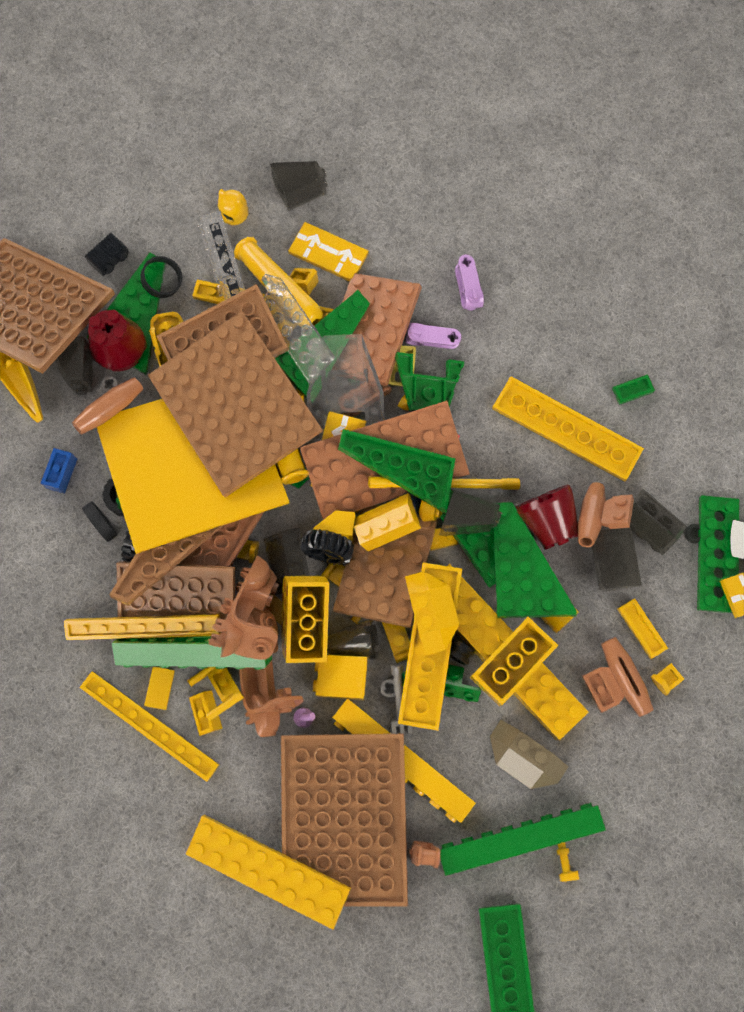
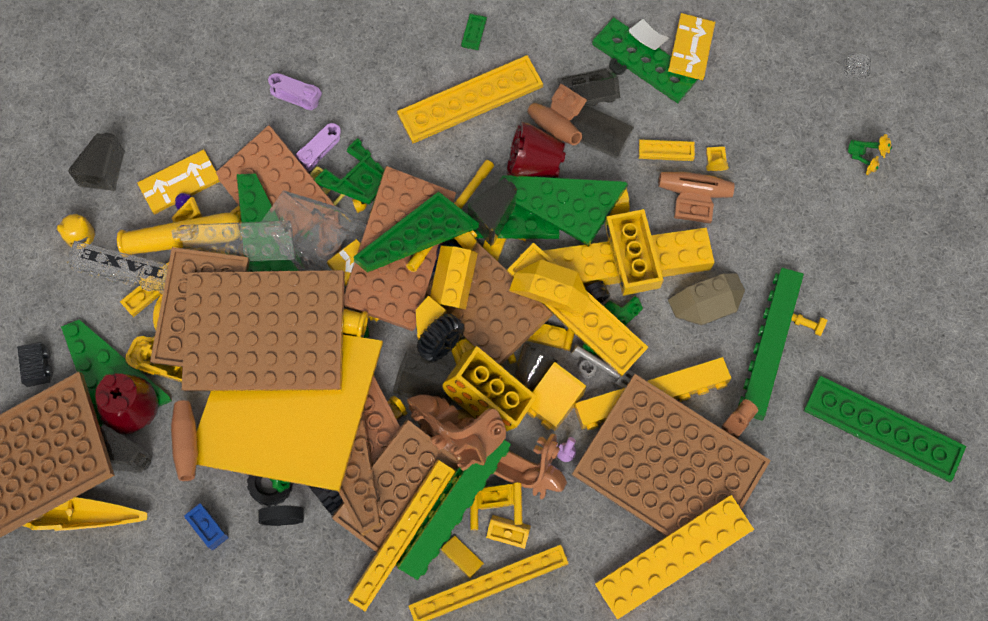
camera: 60 degrees left, 5 degrees down
(108, 379) = (163, 440): light grey bush -> none
(170, 262) = (93, 346): black tyre -> none
(313, 264) = (181, 199): none -> dark purple plate

